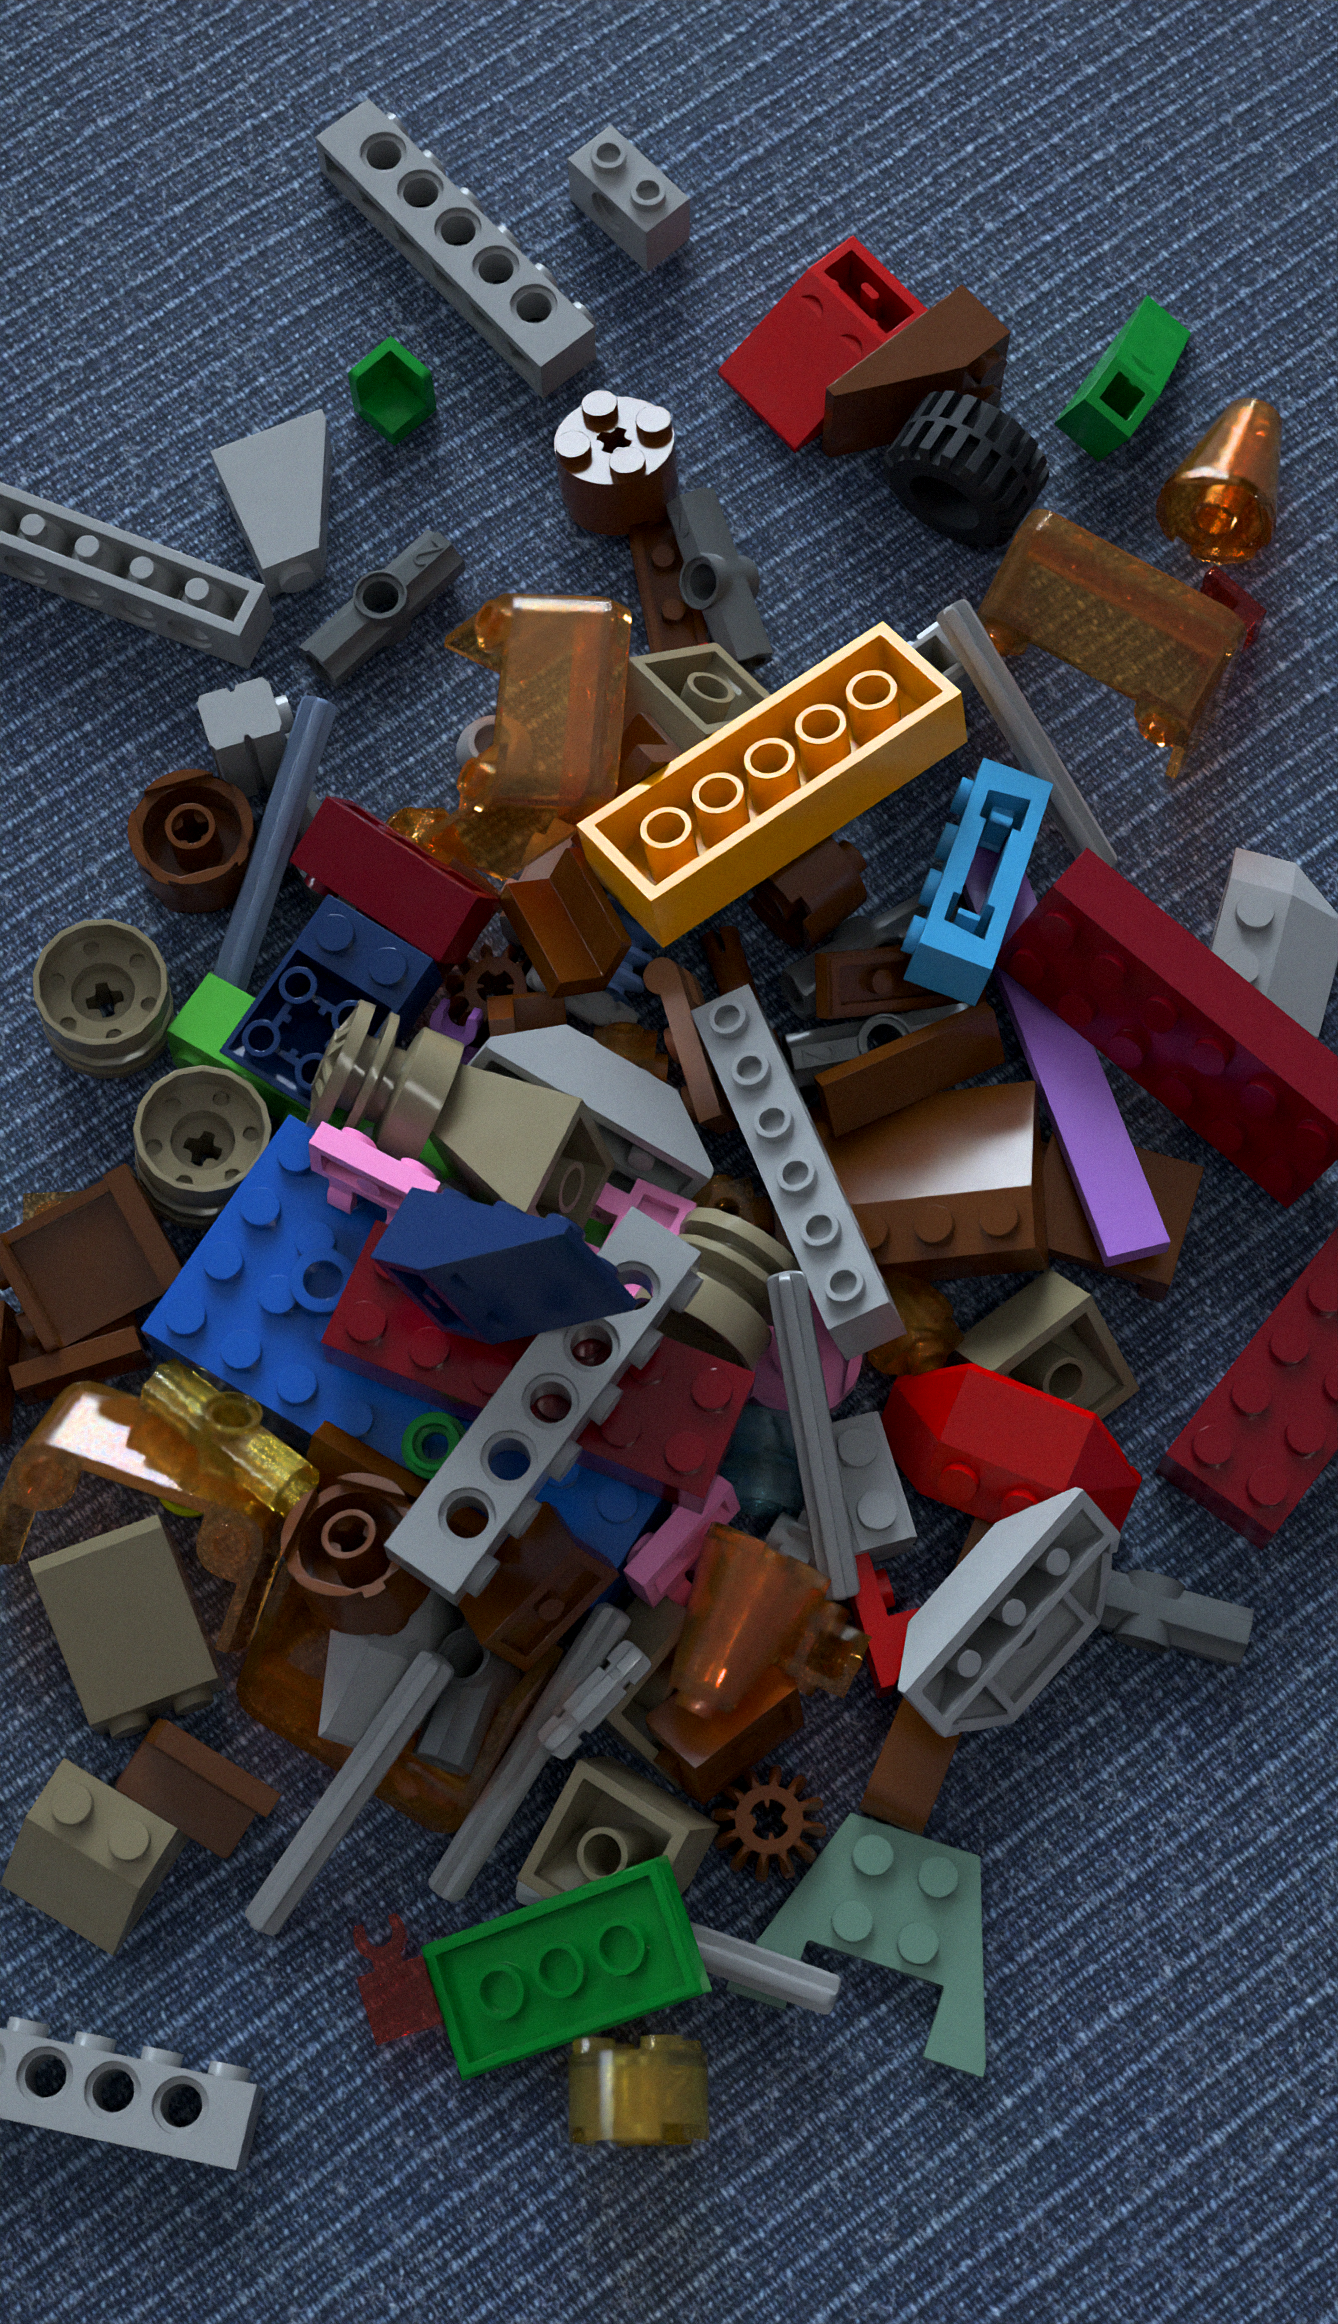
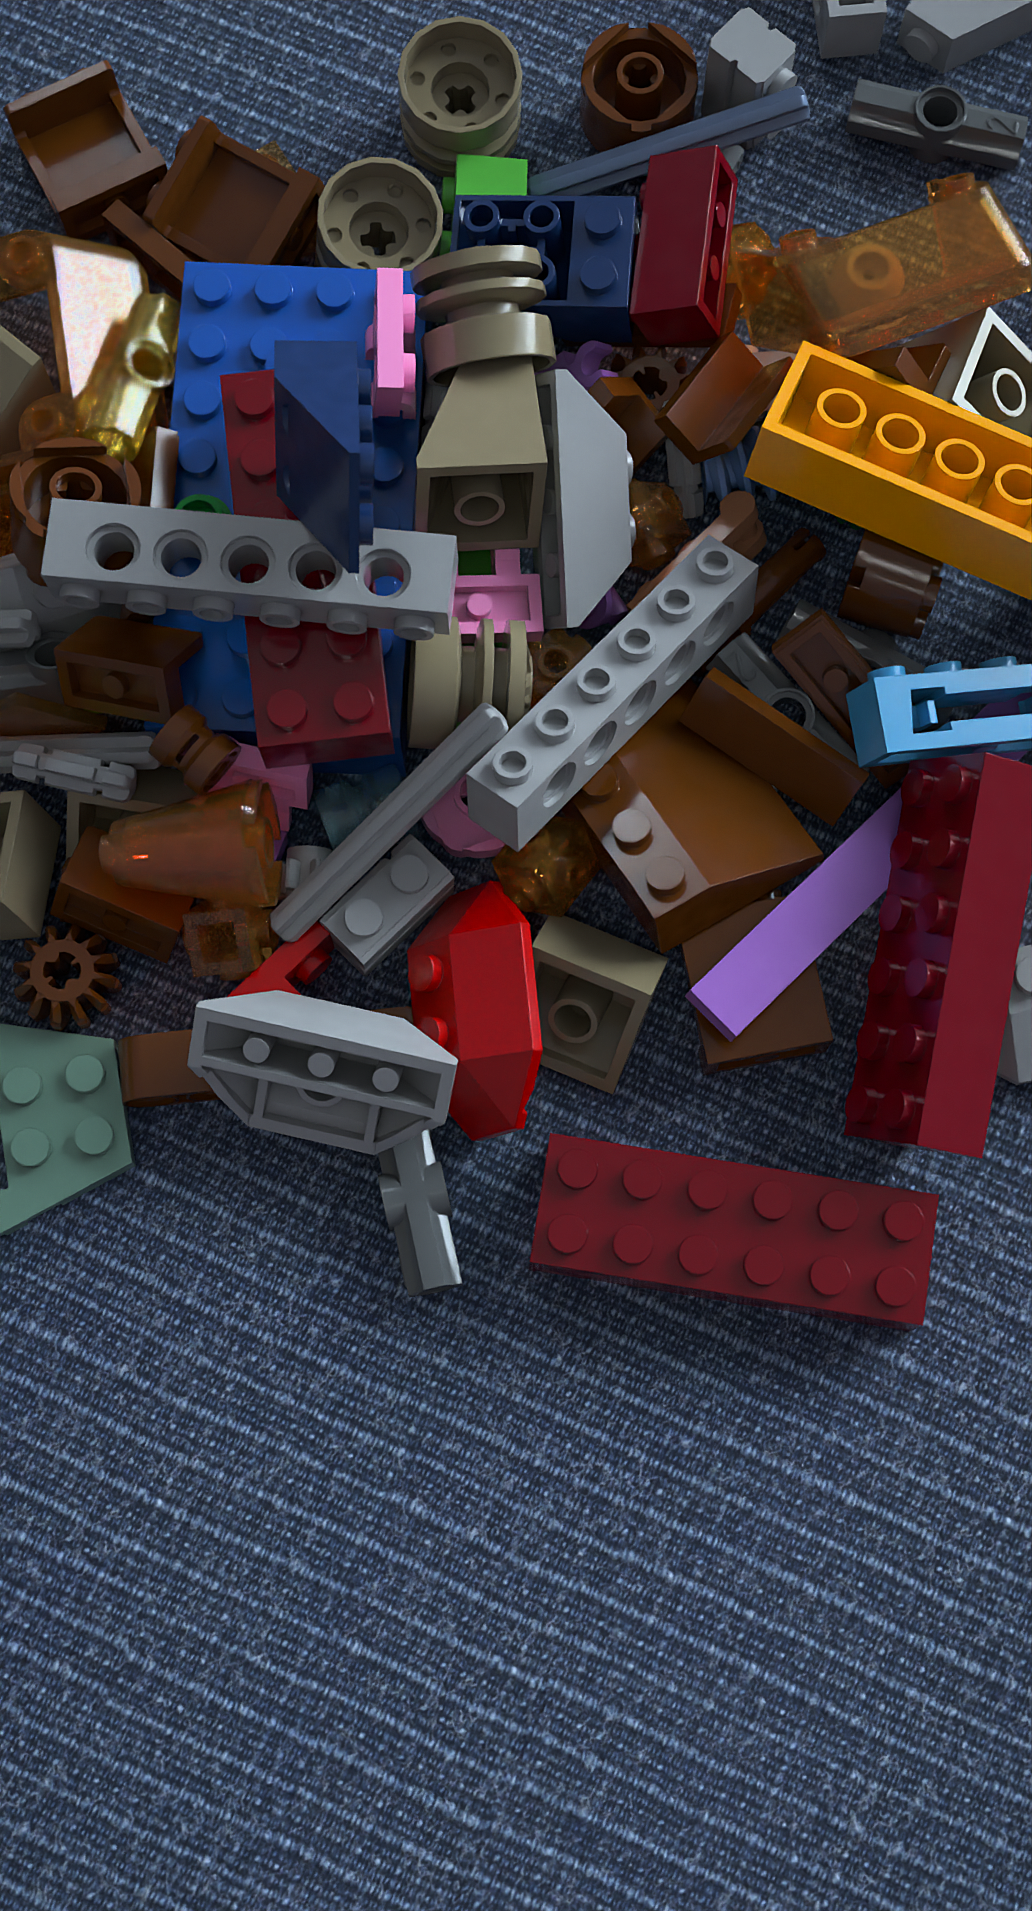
camera: 60 degrees right, 5 degrees up
(658, 1564) = (194, 749): none -> reddish brown wheel

